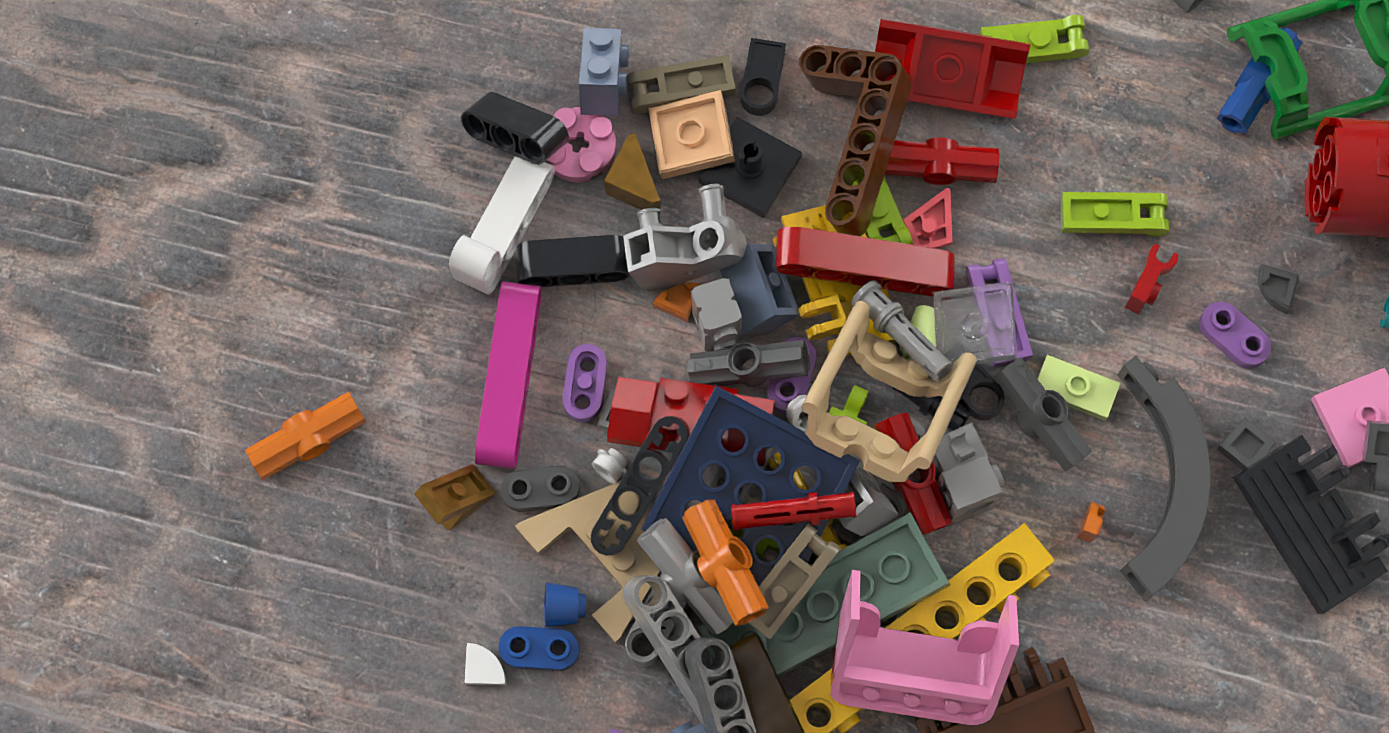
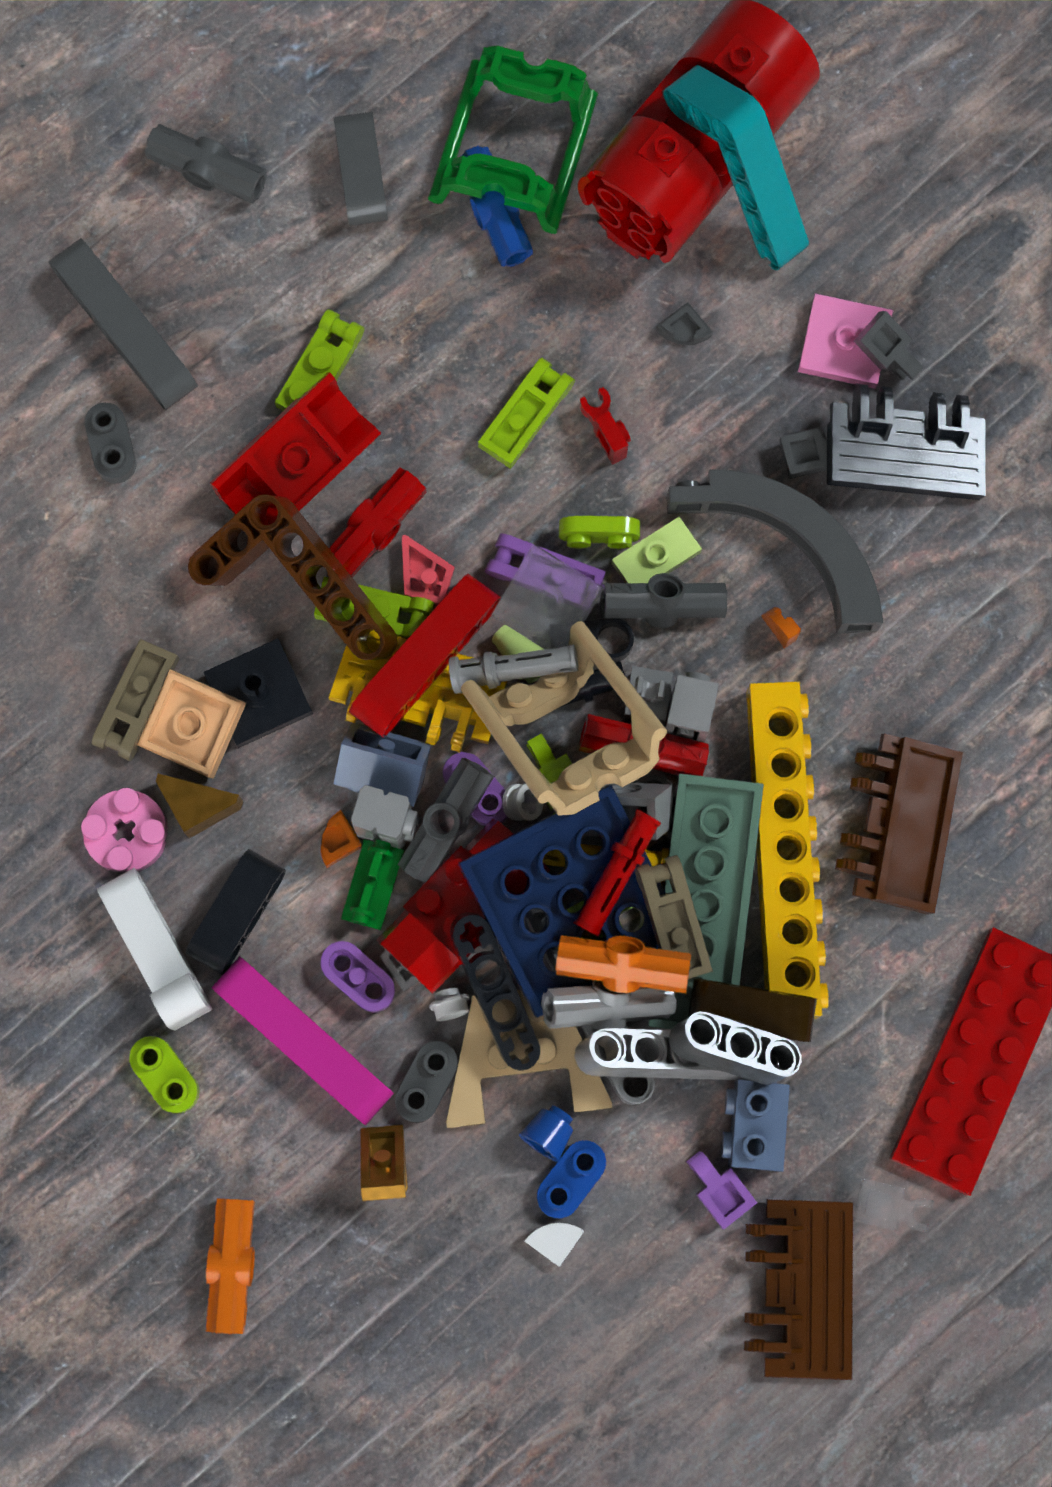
camera: 60 degrees left, 5 degrees up
(417, 293) = (164, 1073): none -> lime plate
(515, 128) = (73, 879): black beam -> none
(601, 71) = (74, 763): sand blue brick -> none
(663, 347) = (372, 884): none -> green hinge
(672, 255) = (301, 815): light grey piece -> none
(765, 69) = (174, 615): black piece -> none
(921, 672) = (823, 858): bright pink windscreen -> none
(1070, 340) = (614, 530): none -> lime plate
(1232, 337) = (704, 395): medium lavender plate -> none

